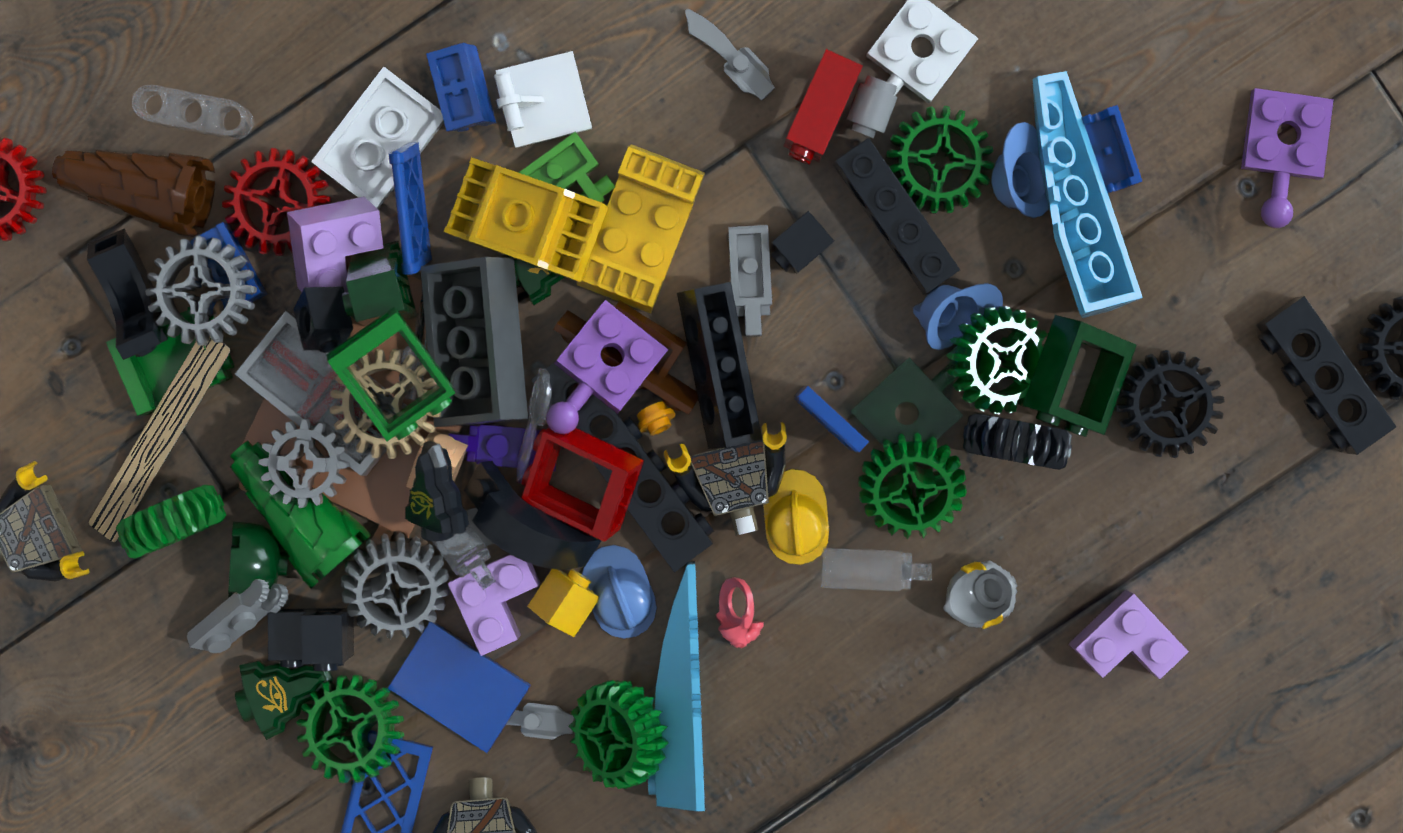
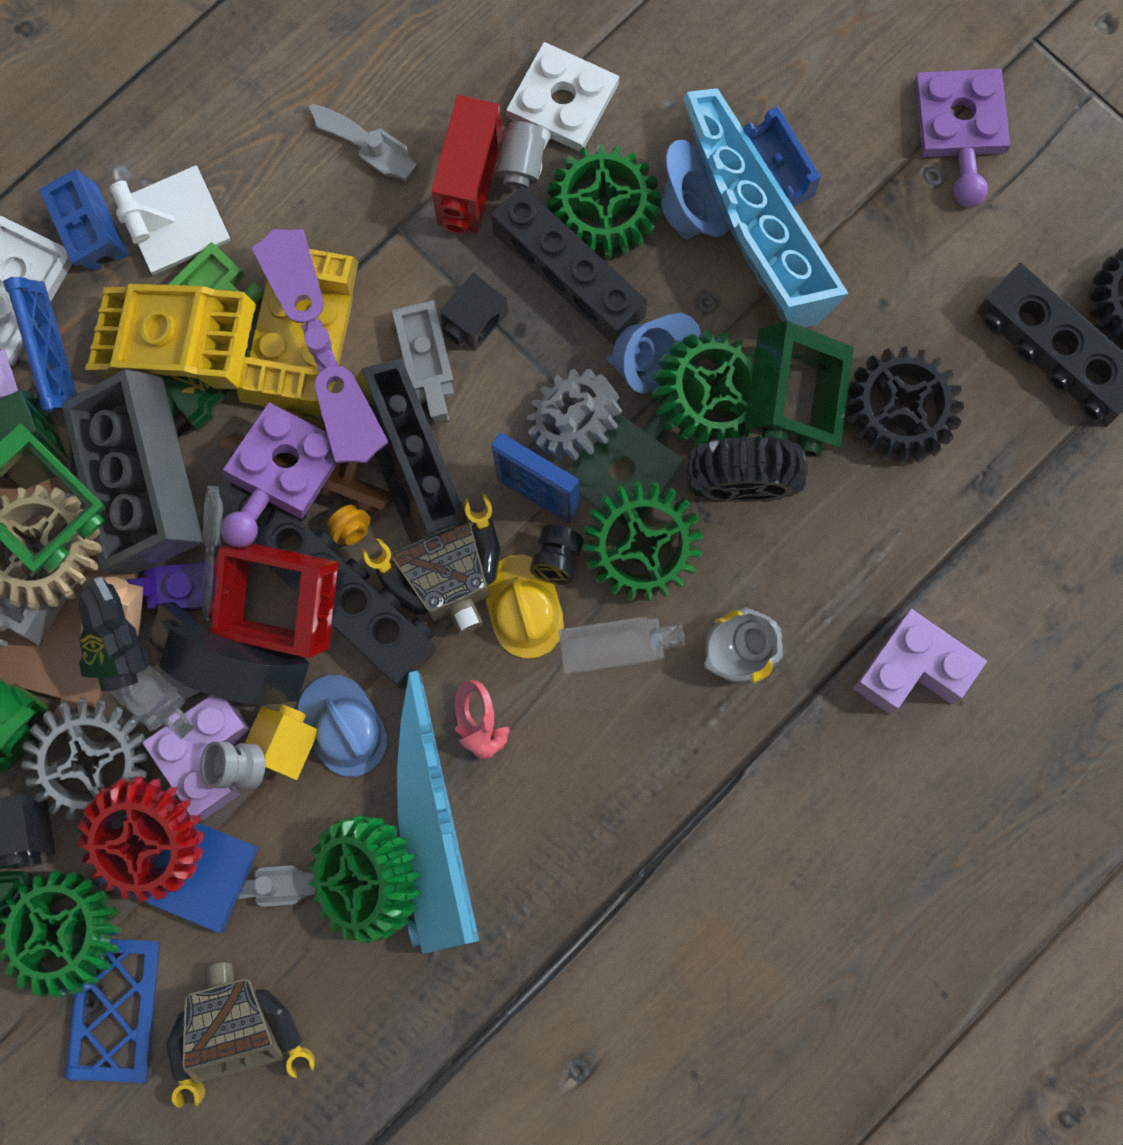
camera: 15 degrees left, 10 degrees down
(417, 677) = (123, 856): none -> red gear
(523, 620) = (228, 765): none -> light grey wheel
(673, 327) = (346, 414): none -> medium lavender piece
(834, 481) = (556, 555): none -> black wheel
(875, 360) = (574, 414): none -> light grey gear

